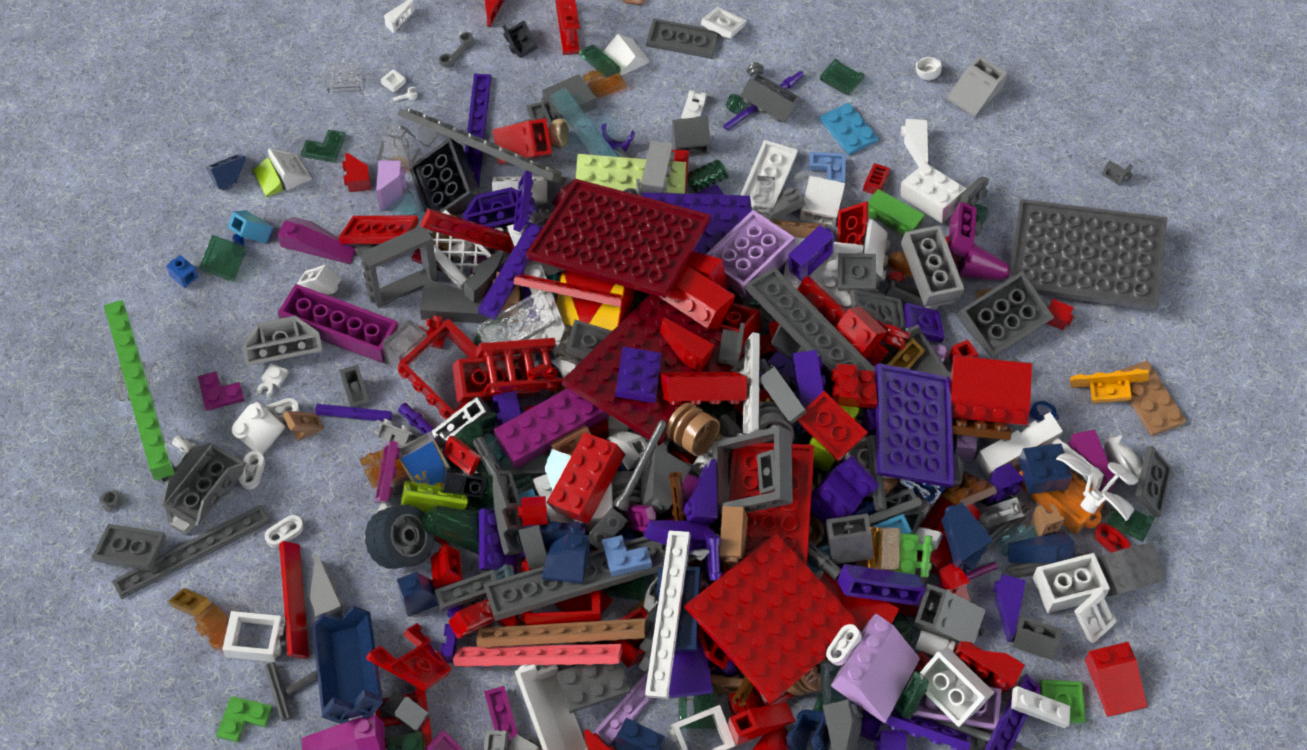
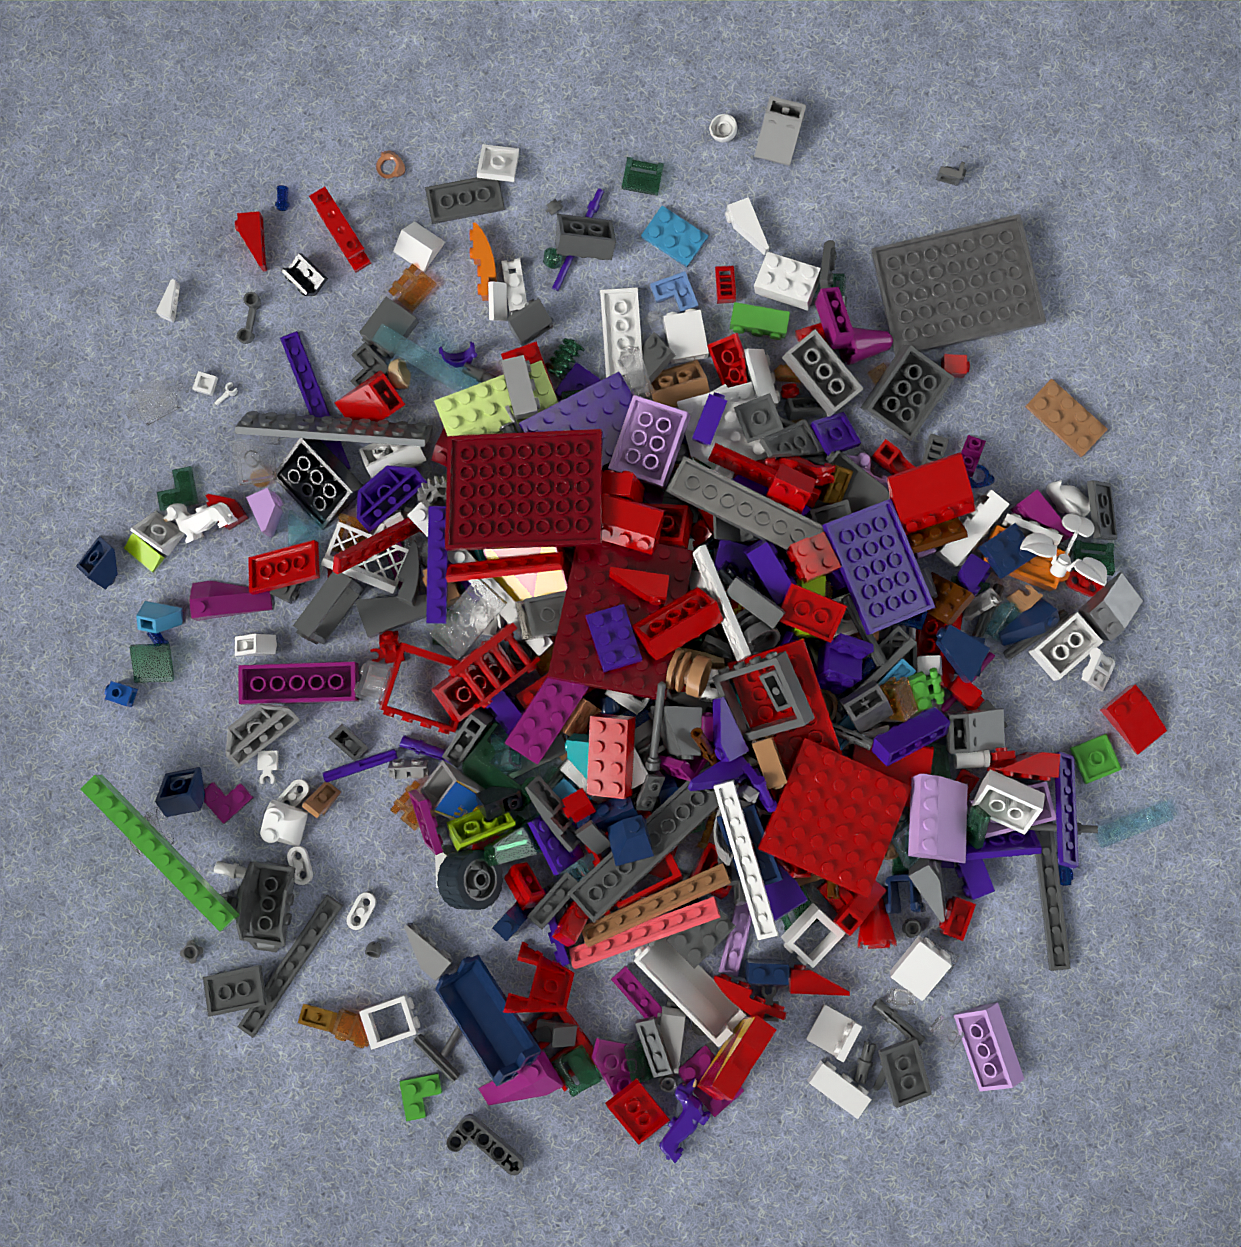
camera: 20 degrees left, 25 degrees up
(184, 366) = (181, 792): none -> dark blue slope
(274, 570) = (373, 950): none -> dark grey hinge
(293, 600) = (405, 971): red tile -> none
(329, 169) = (201, 521): none -> white animal
(461, 454) = (486, 778): red plate -> none
(487, 456) = (510, 770): dark grey axle -> none
(522, 202) = (408, 479): dark purple plate -> none
(543, 371) = (519, 661): red arm -> none
(599, 61) = (397, 267): clear green tile -> none
(624, 561) = (678, 819): medium blue plate -> none
(672, 111) = (497, 301): none -> white tile
(675, 84) = (483, 257): none -> orange slope
(731, 346) = (681, 562): dark grey panel -> none
(843, 645) = (906, 816): white plate -> none
(1008, 601) = (1018, 686): dark purple slope -> none
(1039, 640) = (1056, 713): dark grey brick -> none
(1040, 707) = (1084, 781): white plate -> none
(1045, 391) = (971, 453): none -> magenta slope
(1109, 386) = (1029, 427): light orange bracket -> none

